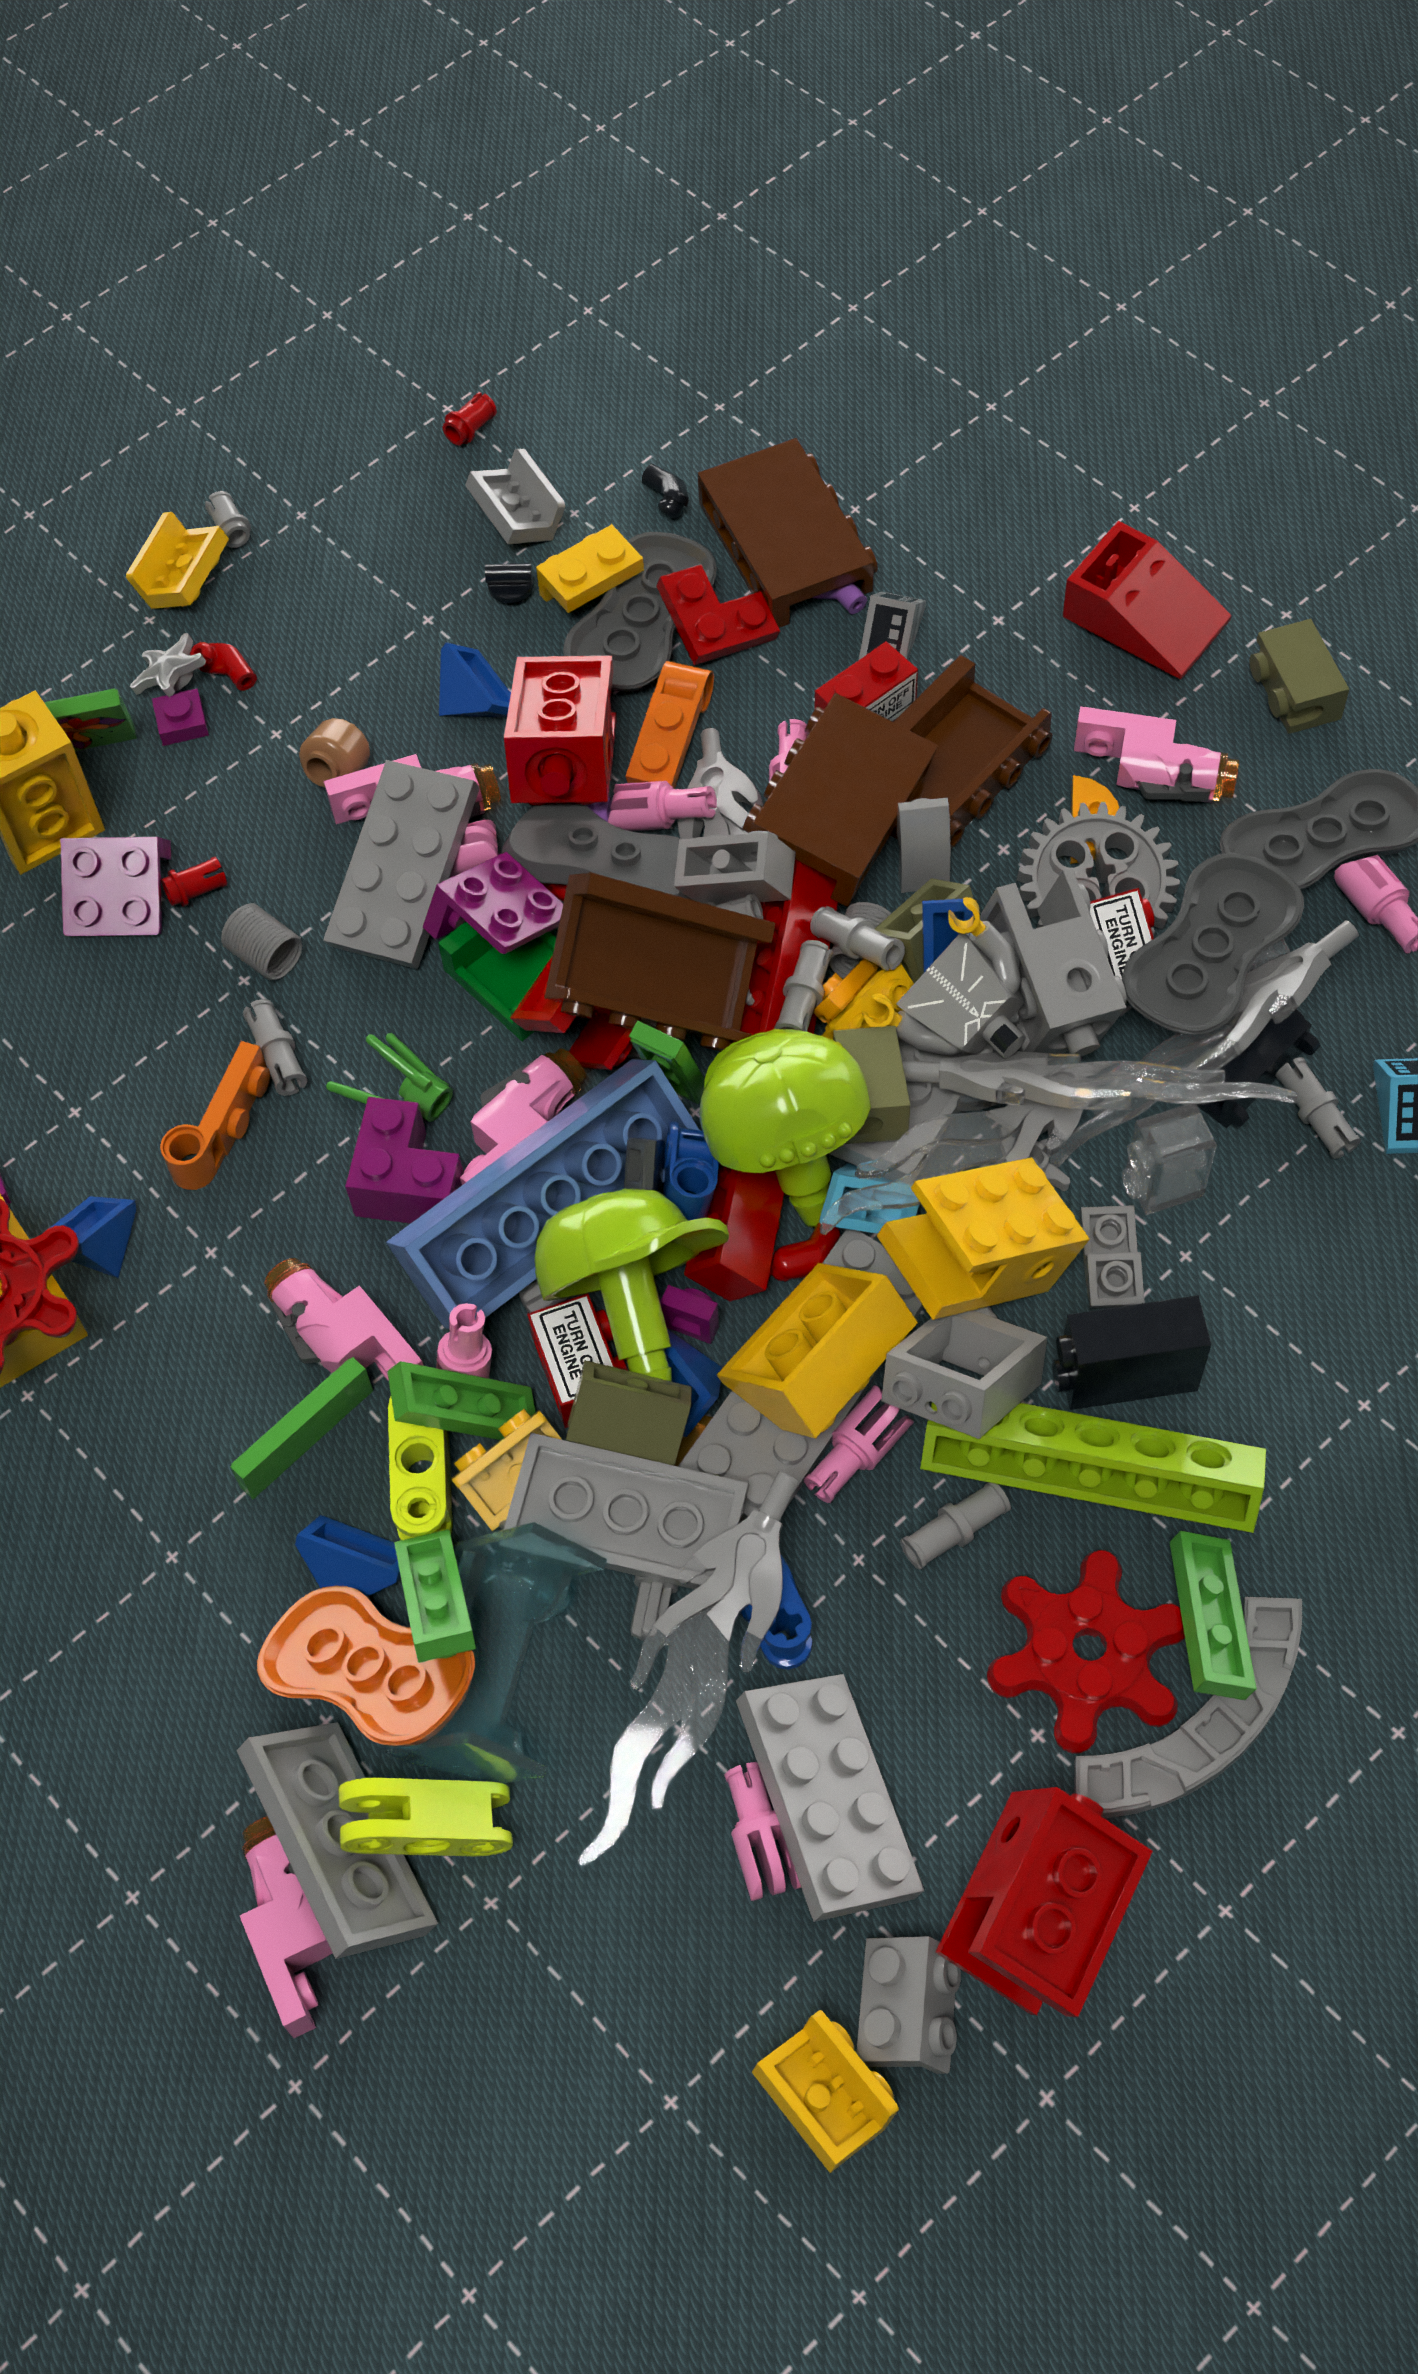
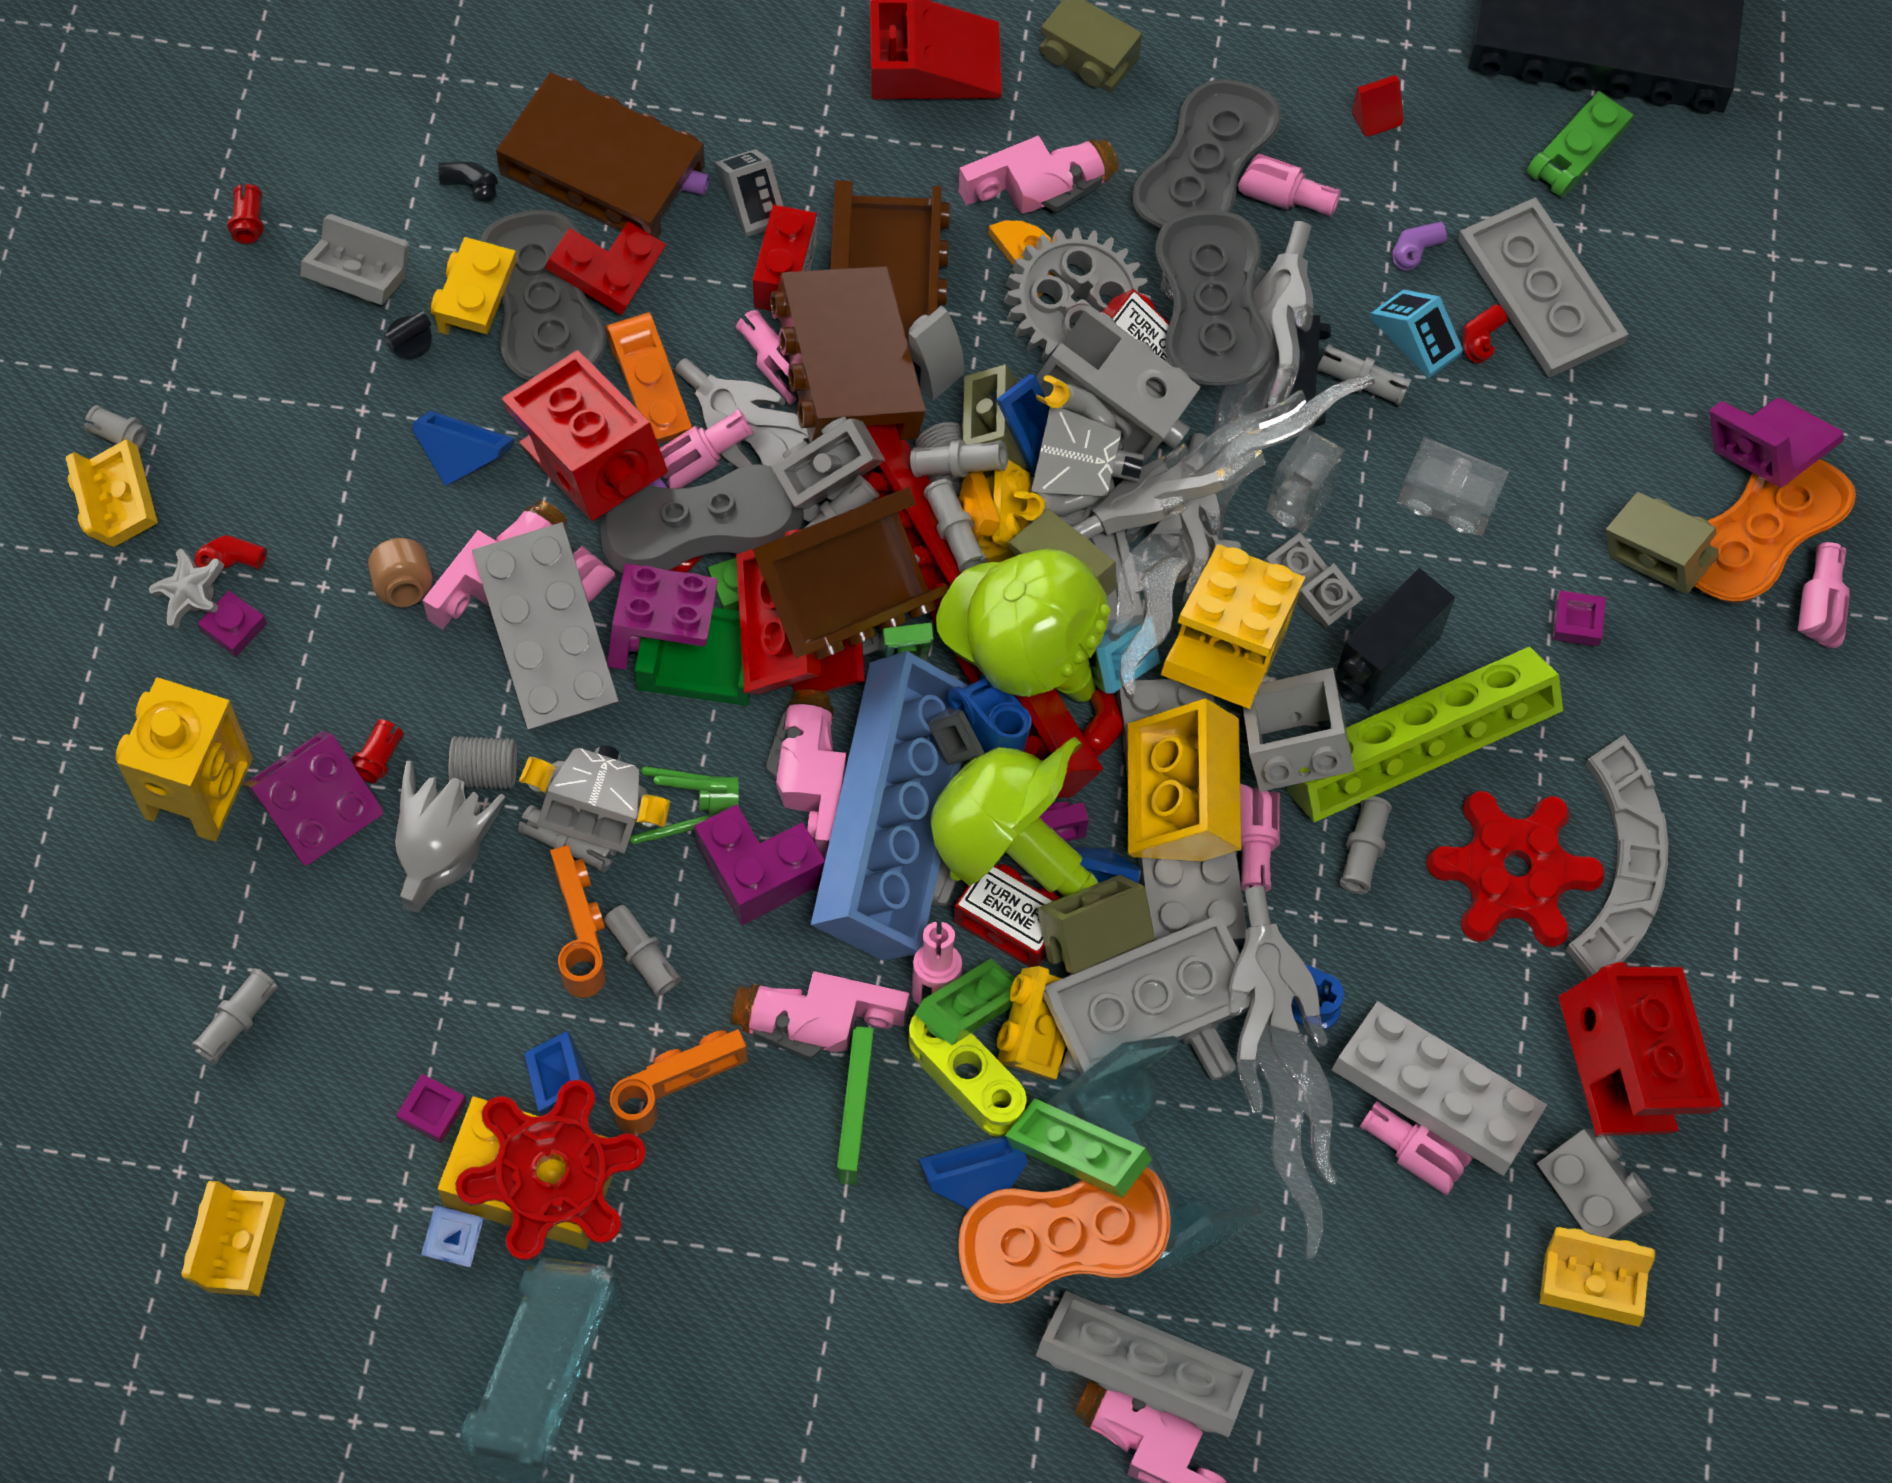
camera: 45 degrees left, 5 degrees up
(93, 719) = (180, 668): bright green tile -> none
(170, 966) = (438, 834): none -> light grey piece
(177, 1292) = (672, 1073): none -> orange plate
(250, 1177) = (642, 951): none -> light grey axle
(310, 1017) = (594, 797): none -> light grey torso
(423, 1817) = (1195, 1303): neon yellow piece -> none
(1212, 1616) = (1582, 785): bright green plate -> none
(1319, 1260) = (1452, 487): none -> clear brick
(1346, 1460) = (1579, 618): none -> magenta plate

